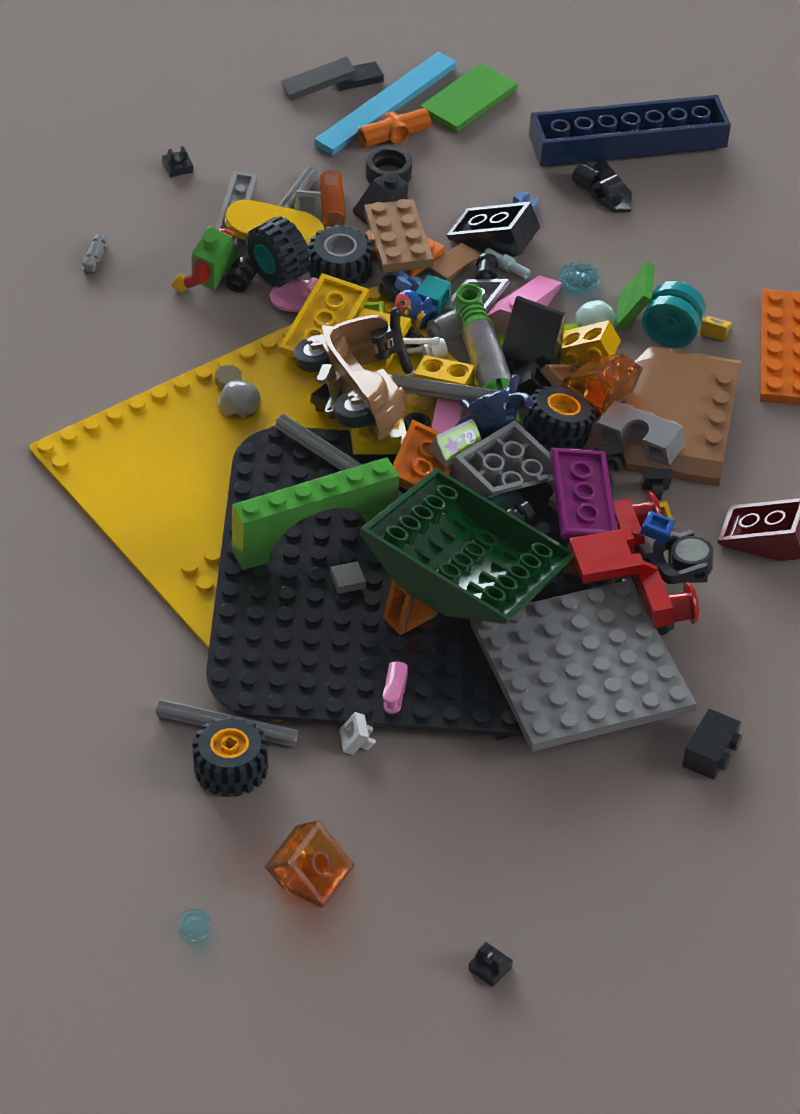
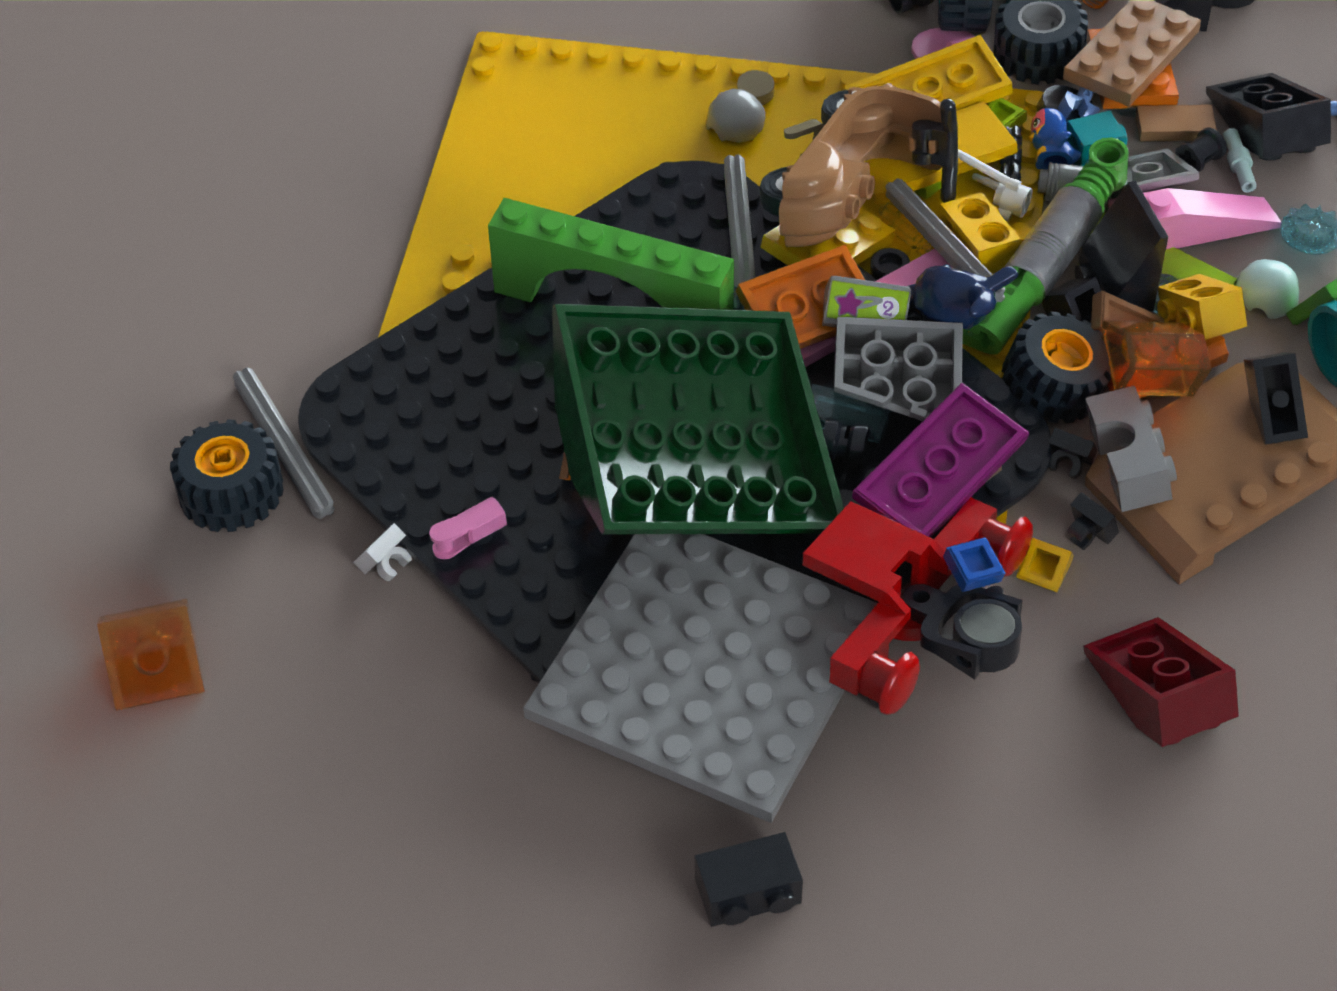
camera: 50 degrees right, 5 degrees up
(490, 964) = (181, 920): black tile -> none
(680, 361) = (1276, 397): none -> black slope

